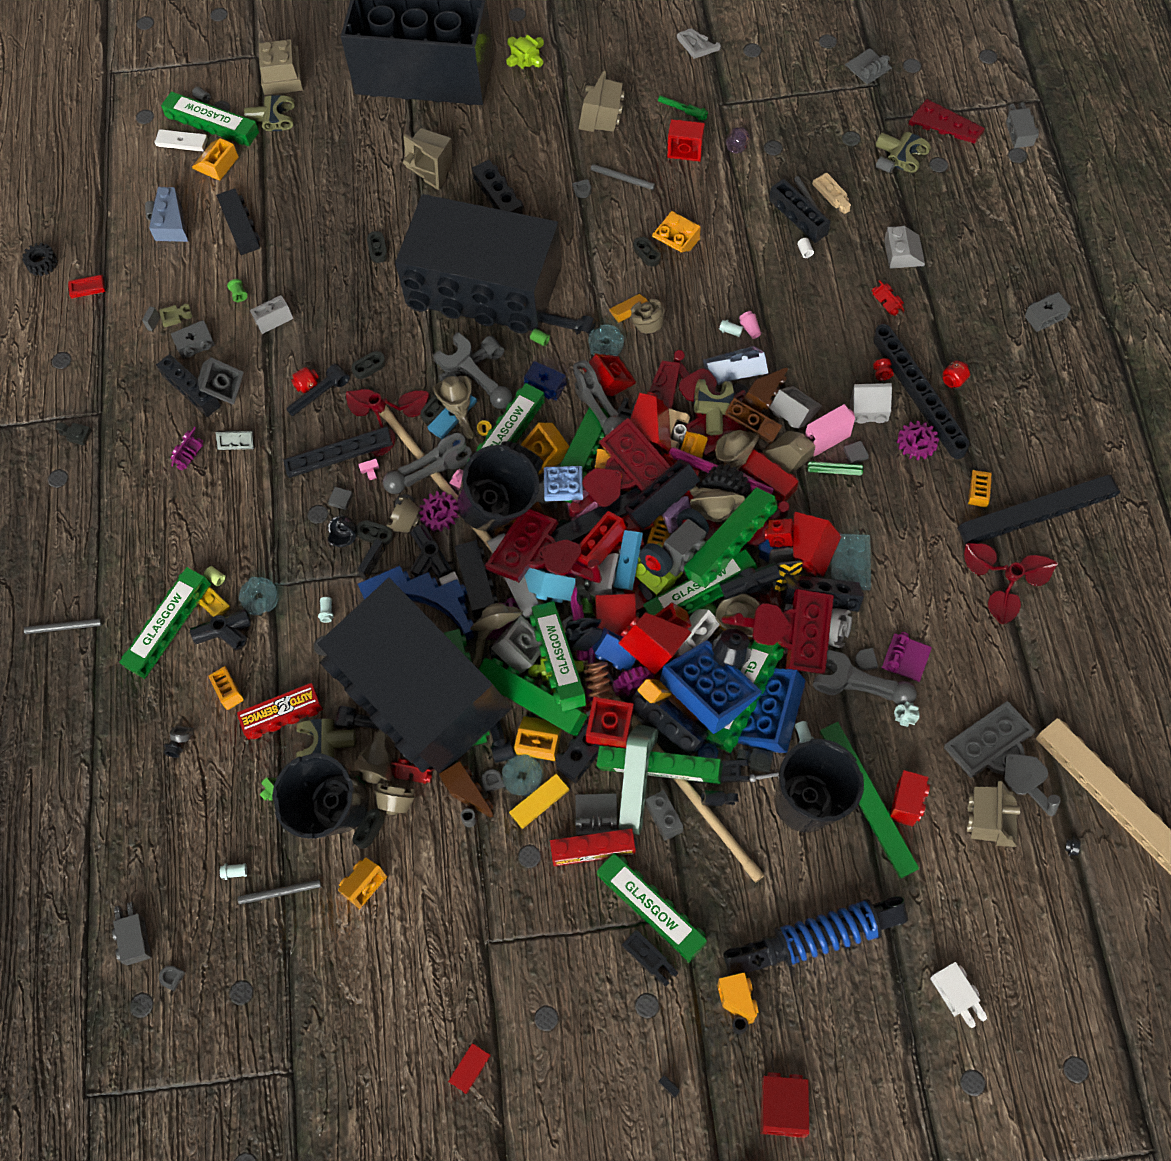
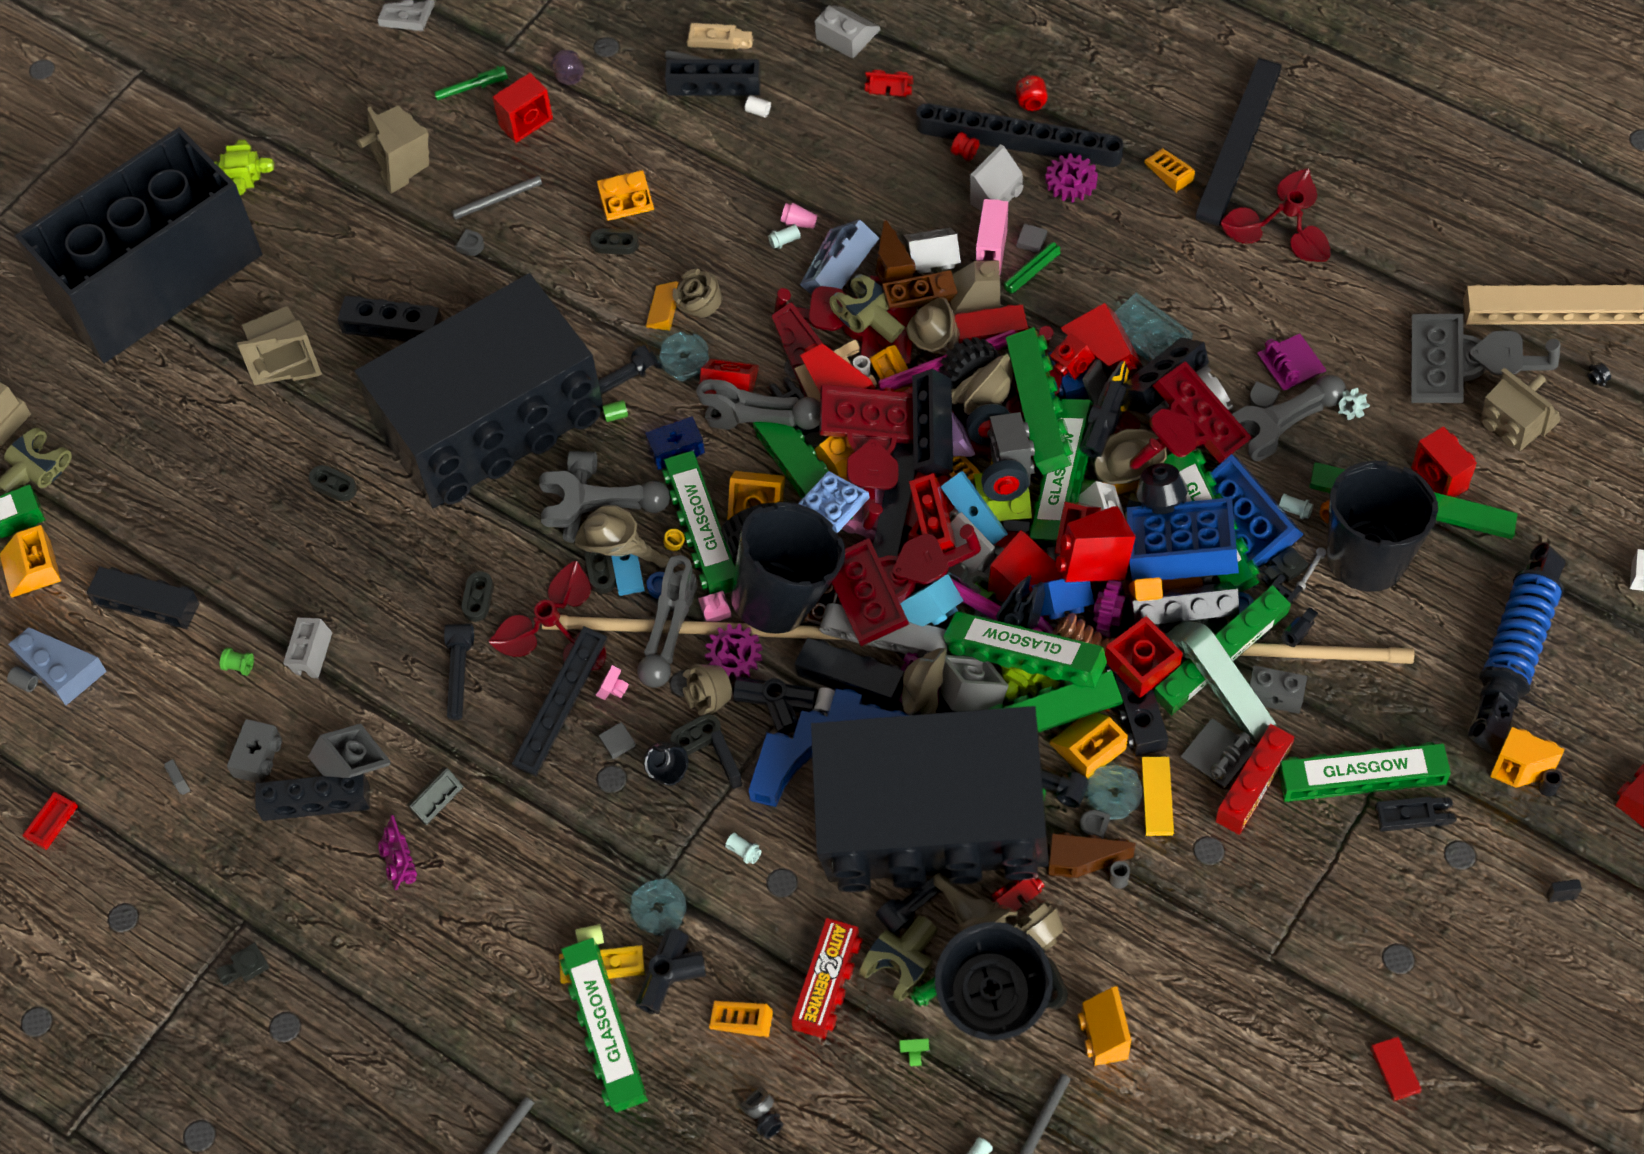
camera: 50 degrees left, 5 degrees down
(173, 315) = (197, 752): olive plate -> none
(304, 379) = (430, 672): red head -> none

